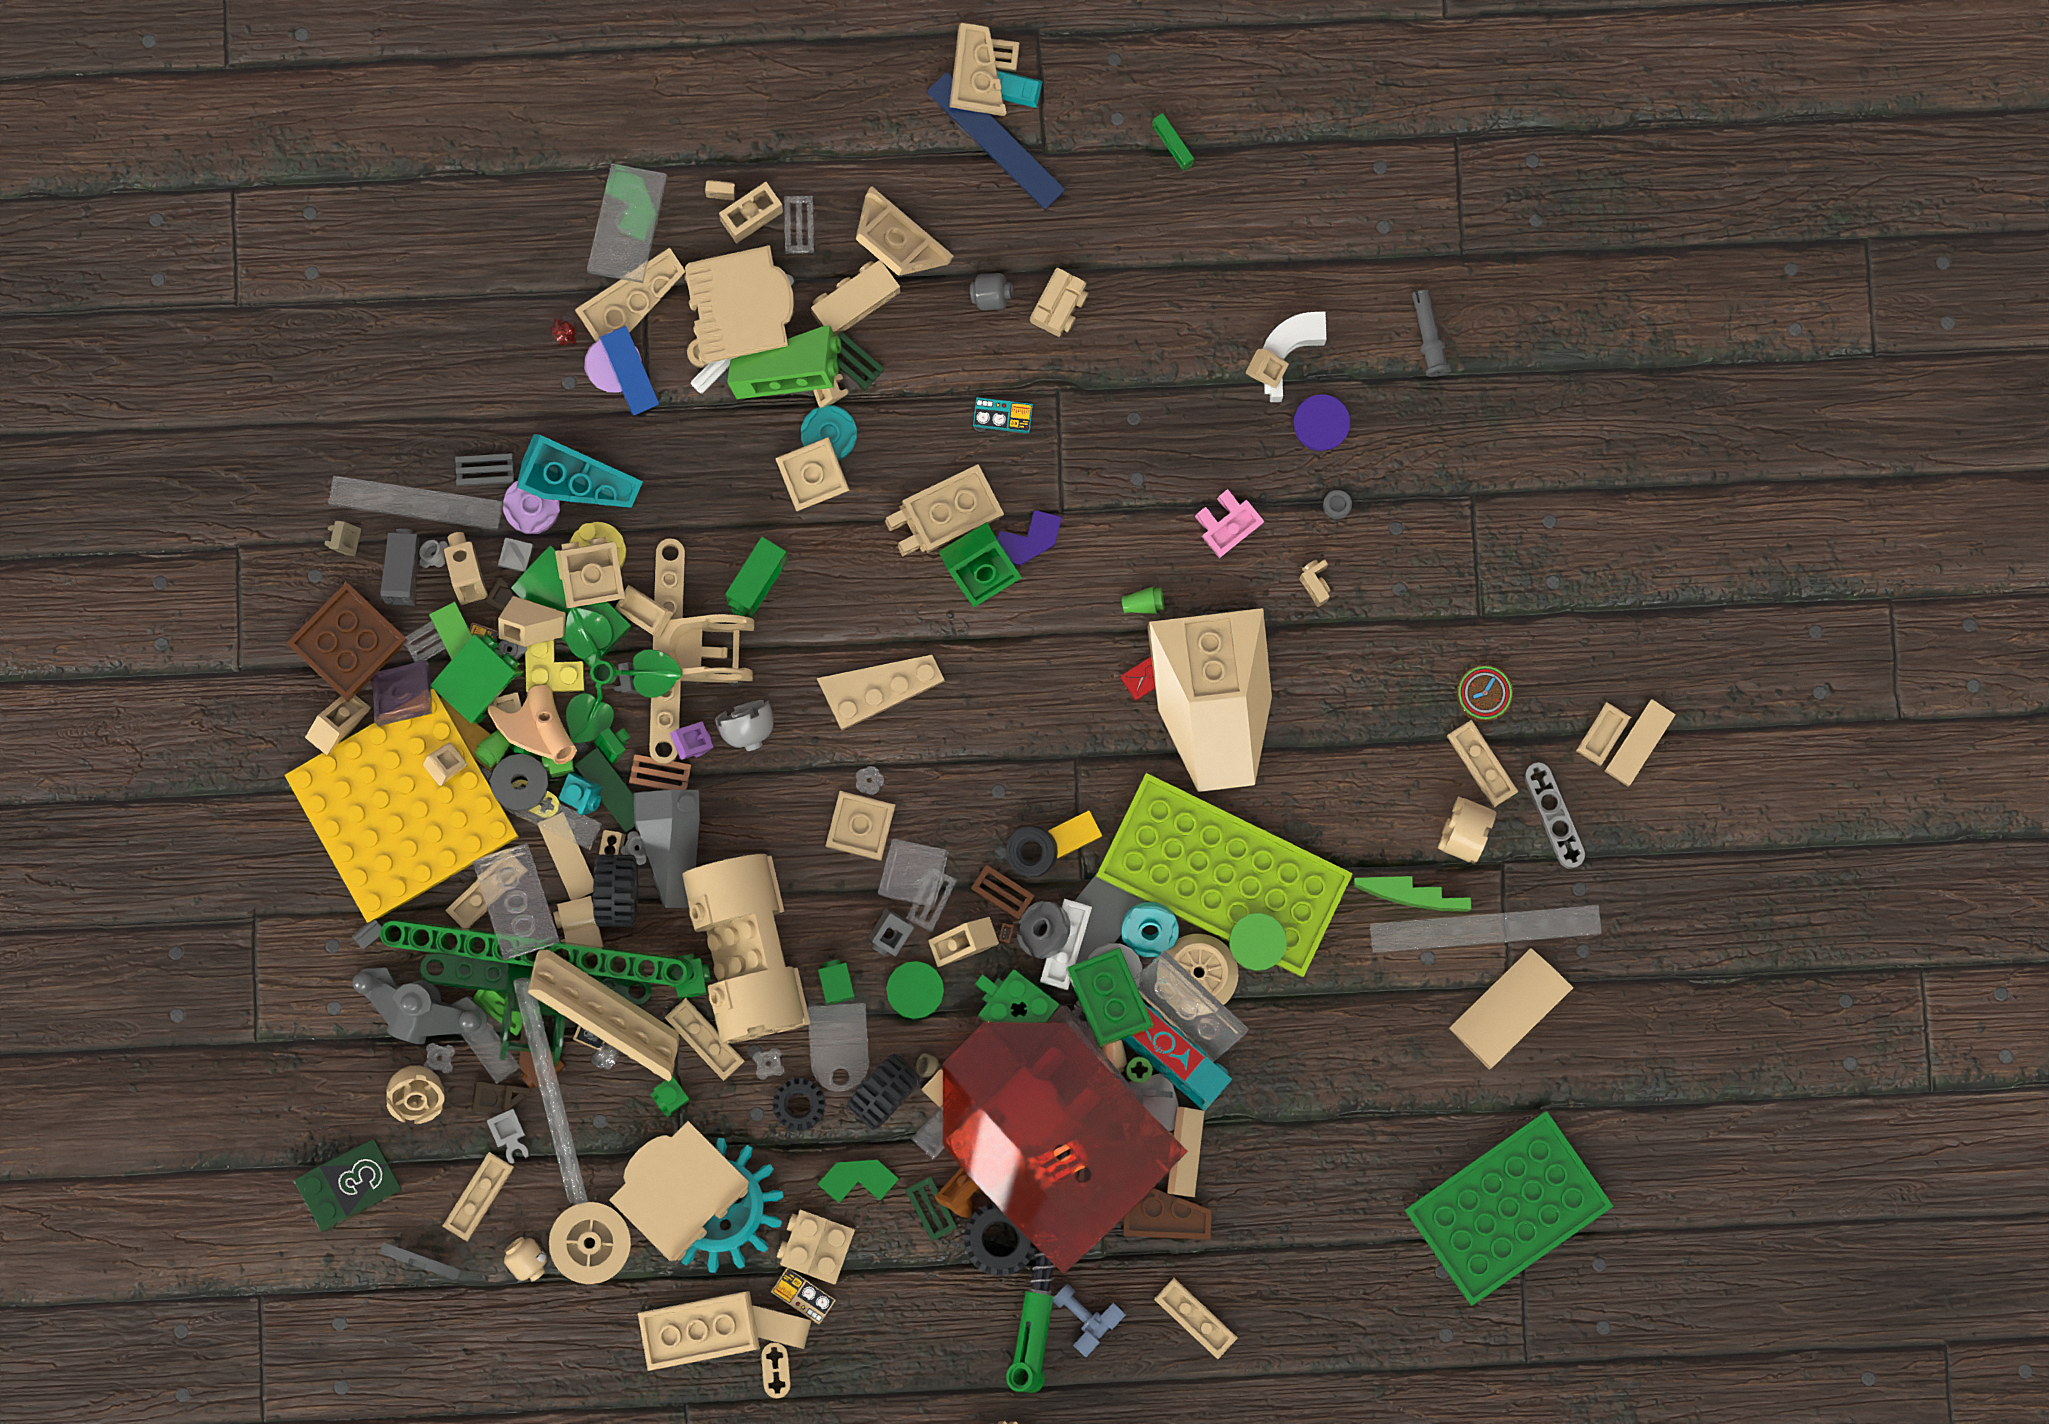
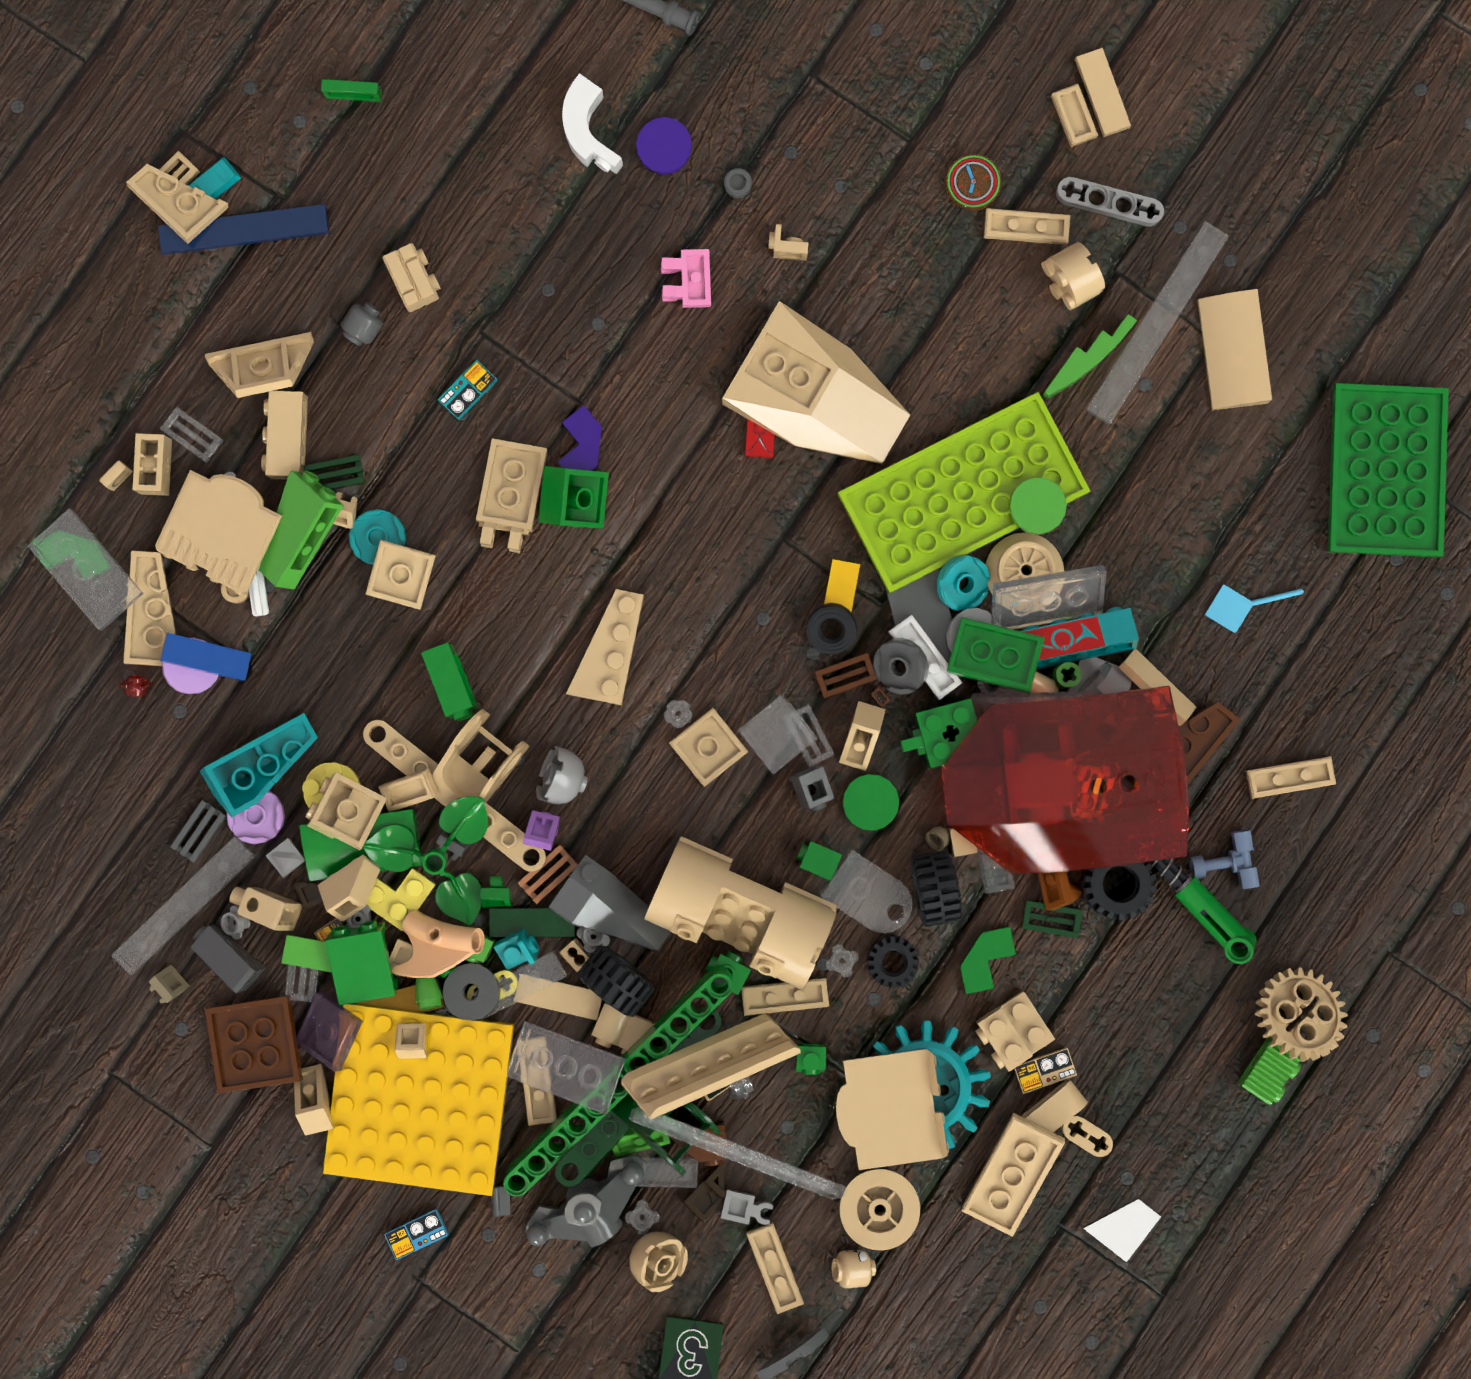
camera: 45 degrees left, 5 degrees up
(290, 887) = (416, 1234): none -> tile
(1144, 601) = (700, 391): bright green cone -> none
(1267, 368) = (589, 152): tan slope -> none
(1298, 1166) = (1231, 607): none -> medium azure piece

